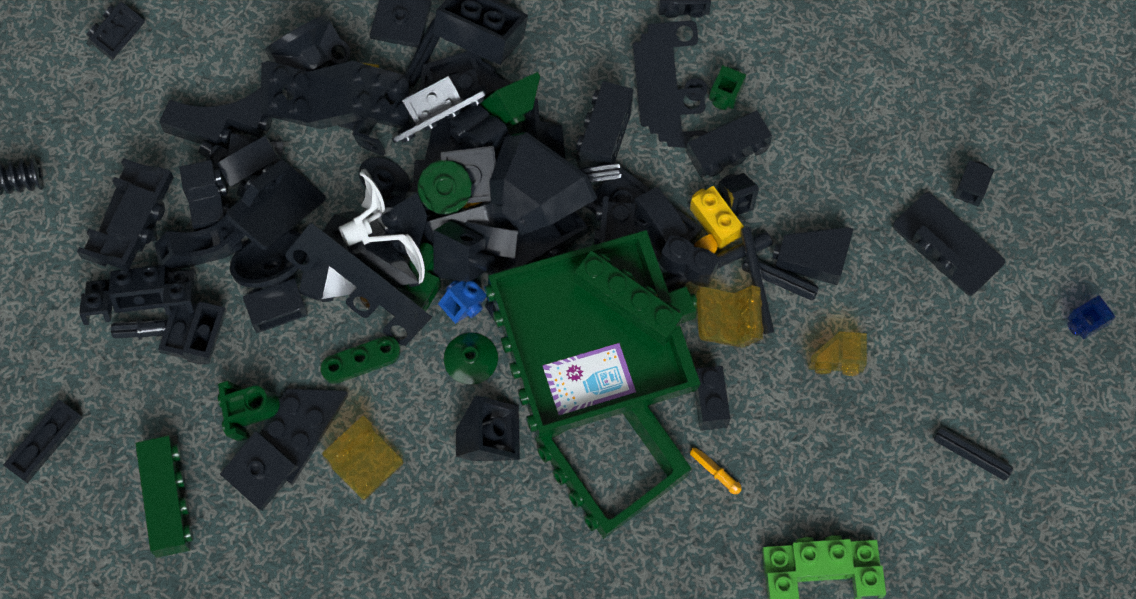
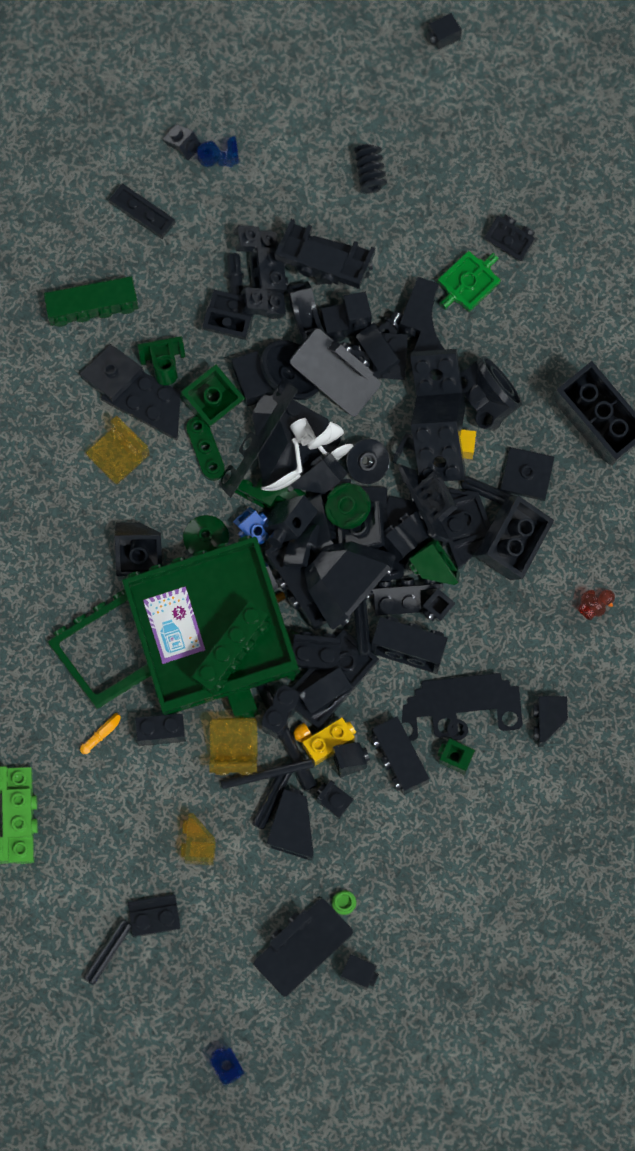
camera: 90 degrees right, 5 degrees up
(166, 74) = (469, 281): none -> green plate
(298, 347) = (211, 396): none -> dark green slope
(557, 103) = (437, 605): none -> black brick
(780, 214) = (333, 799): none -> black bracket
(895, 202) = (344, 902): none -> bright green plate
(926, 403) = (154, 915): none -> black plate

